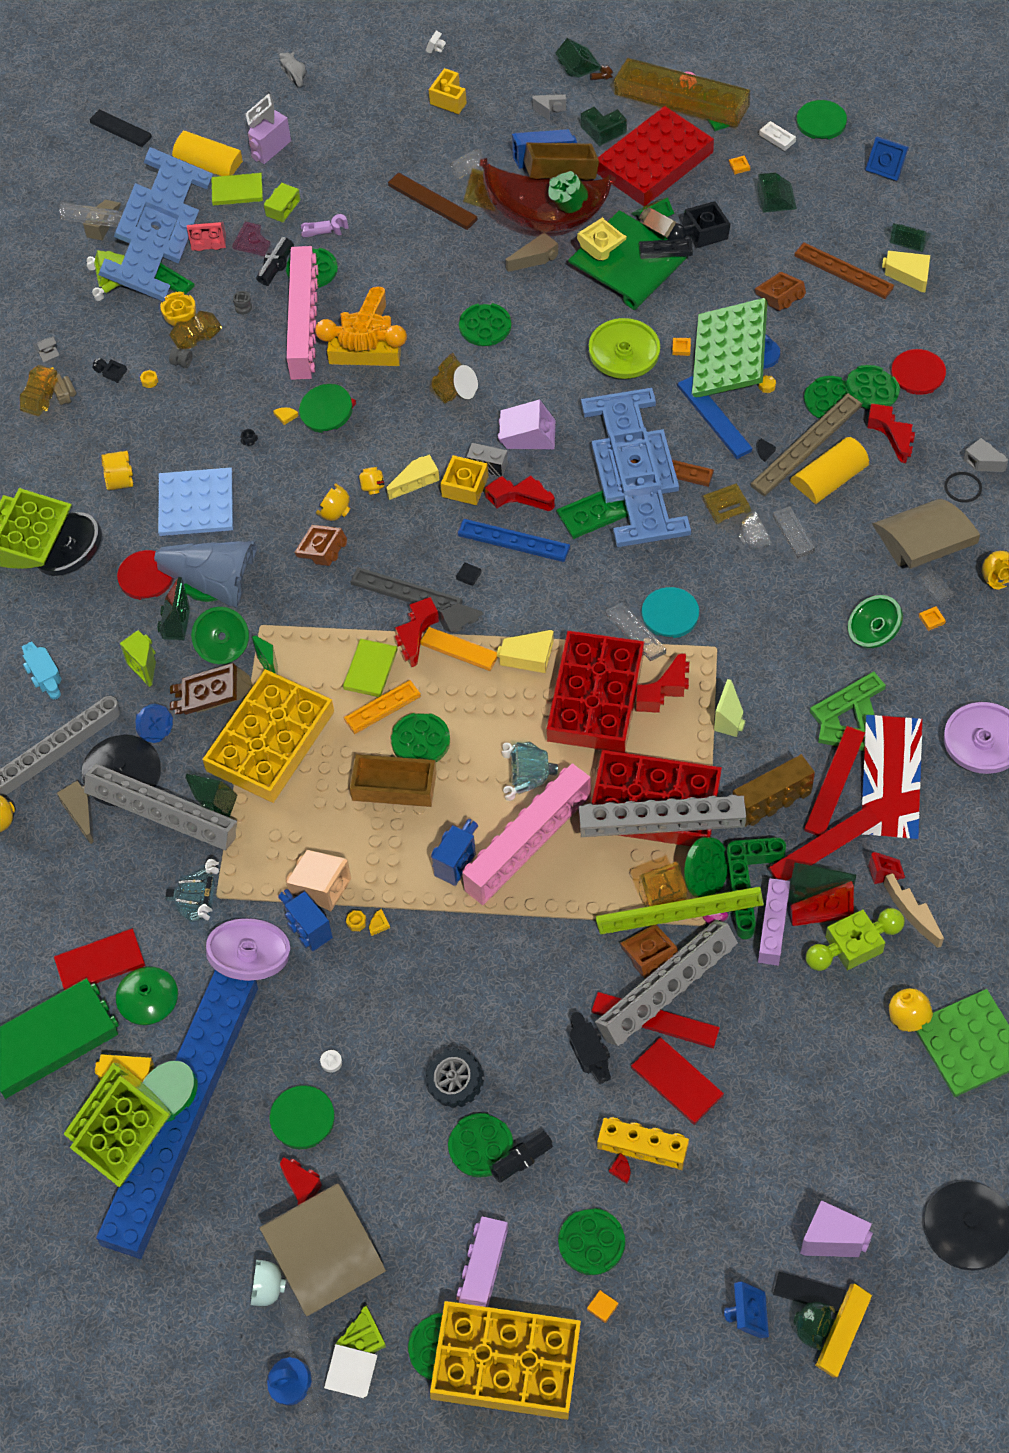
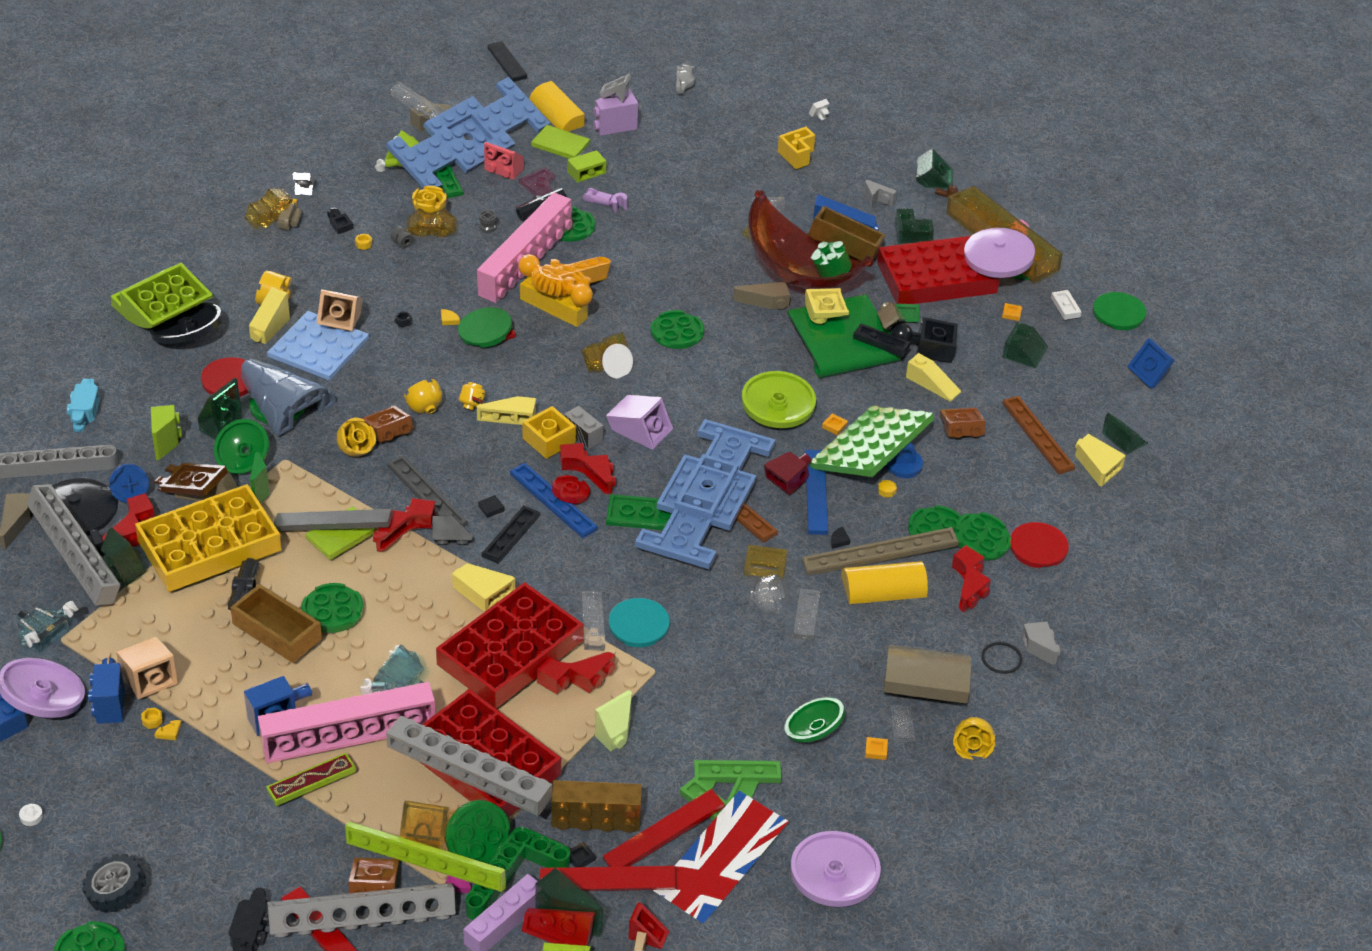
camera: 25 degrees right, 15 degrees down
(135, 497) = (270, 316): none -> light yellow slope
(171, 789) = (96, 541): none -> black tile
(185, 745) = (139, 510): none -> red arch
(193, 458) = (339, 310): none -> light nougat slope
(310, 574) = (355, 437): none -> yellow cylinder
(333, 761) = (244, 581): none -> black piece
(360, 660) = (333, 520): none -> tile
(382, 707) = (323, 567): light orange tile -> none
(432, 201) = (715, 221): reddish brown tile -> none
(459, 648) = (427, 555): light orange tile -> none
(505, 590) = (510, 534): none -> black tile
(521, 523) = (570, 489): none -> red tile
(532, 898) = (310, 779): none -> tile
(682, 411) = (788, 471): none -> dark red torso
(700, 115) = (999, 252): none -> lavender dish
(726, 262) = (930, 376): none -> light yellow slope
(789, 836) = (581, 855): none -> black tile

